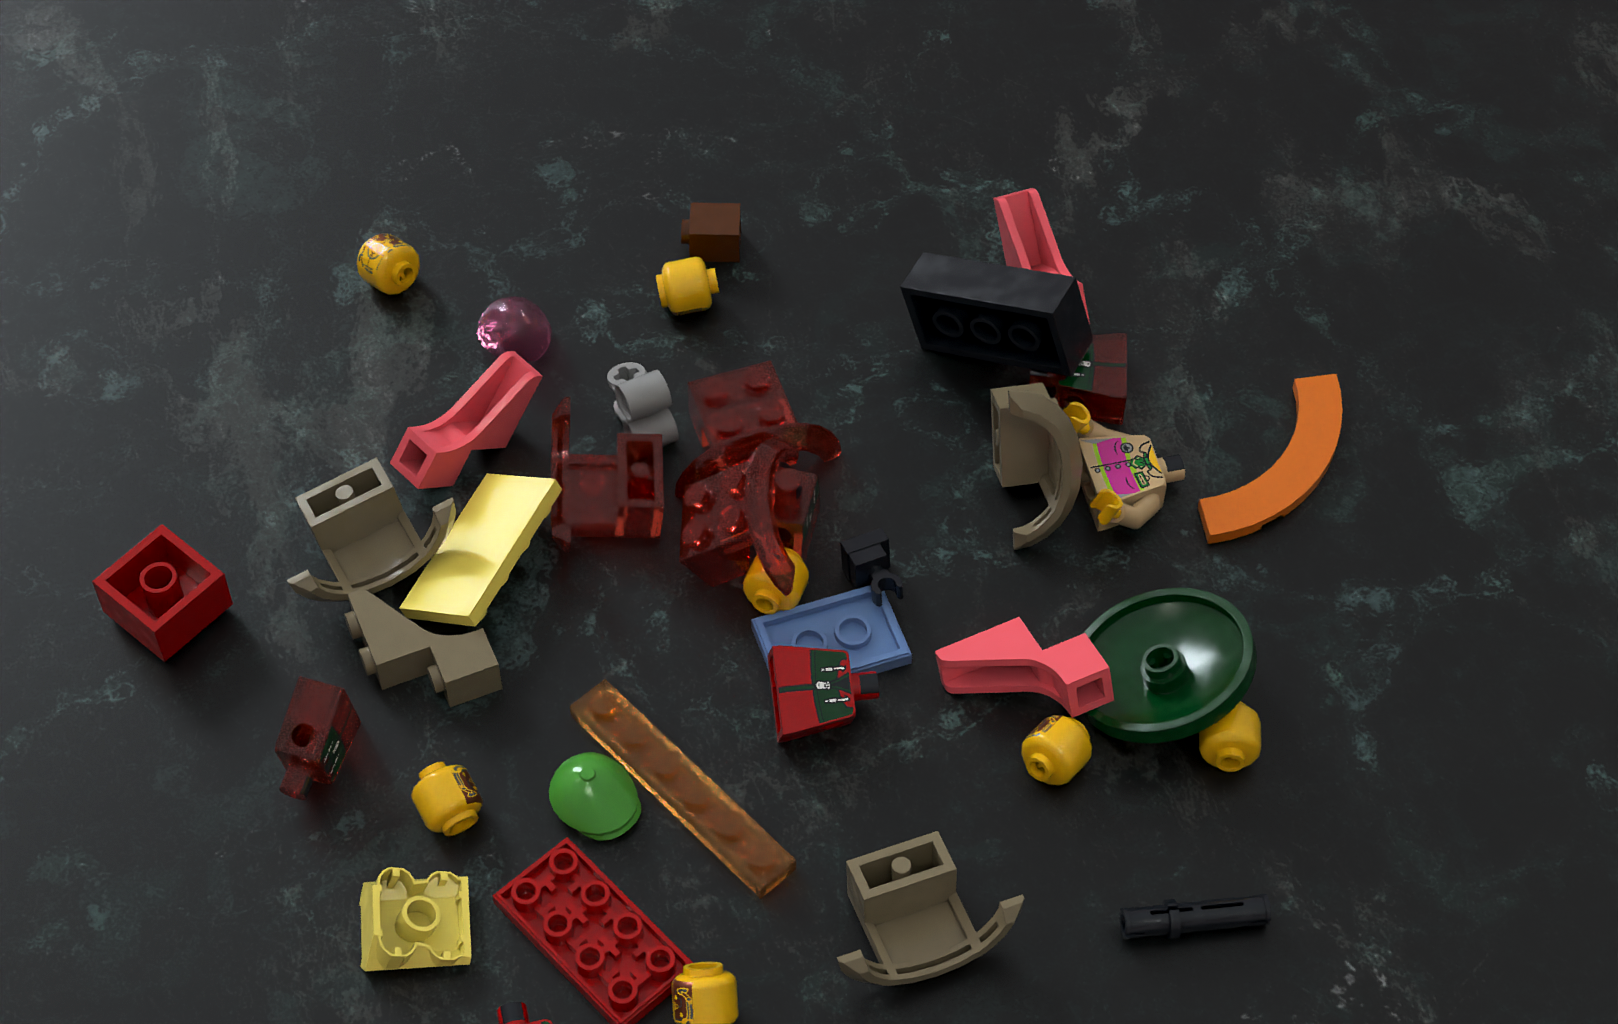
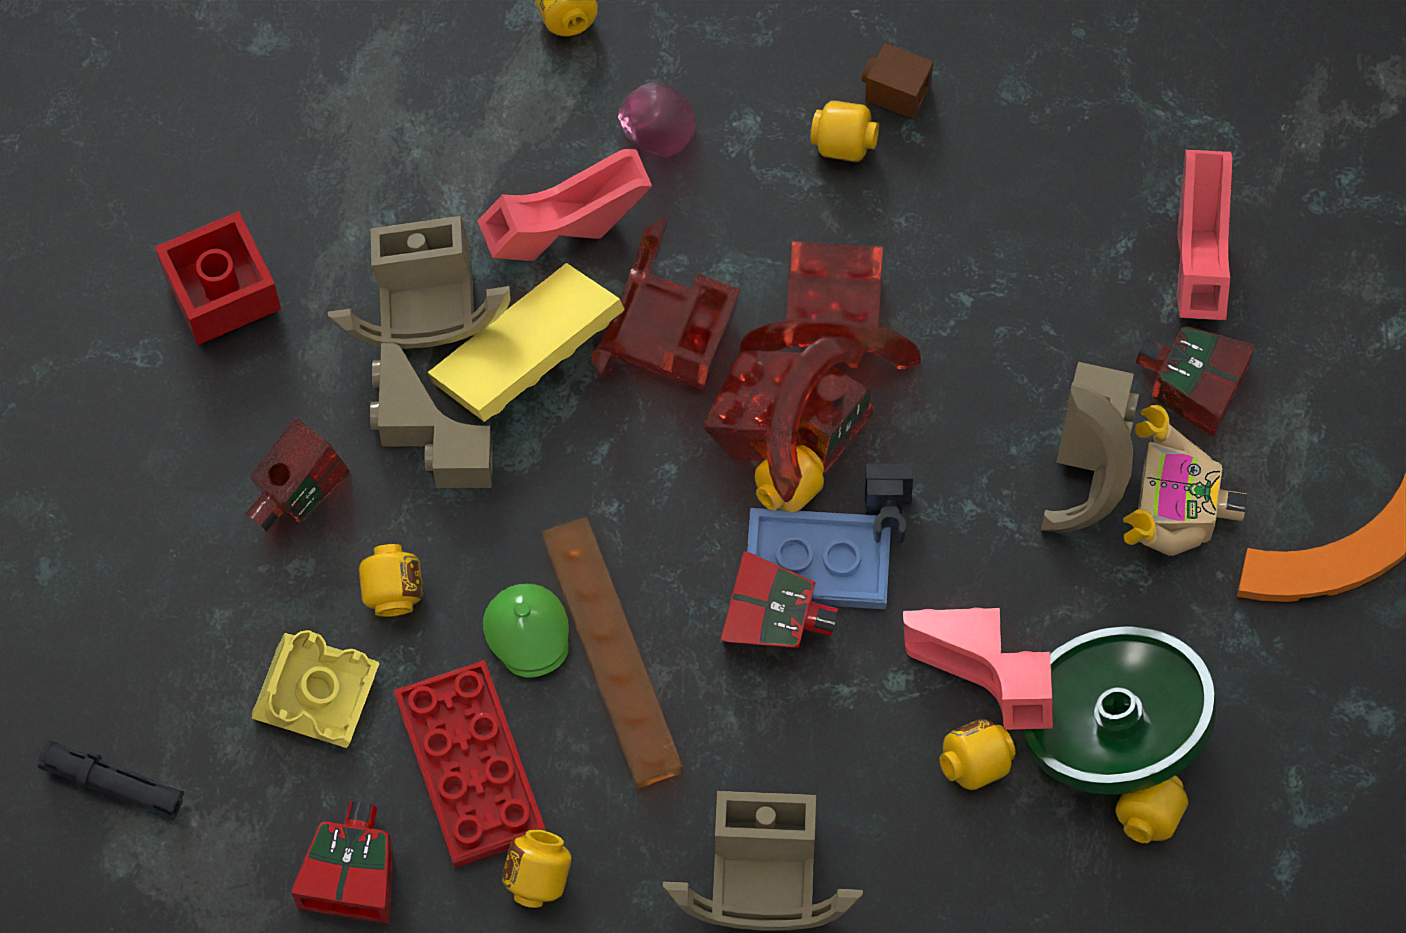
camera: 25 degrees right, 10 degrees up
(642, 401) = (741, 245): light grey piece -> none
(998, 313) = (1128, 280): black brick -> none

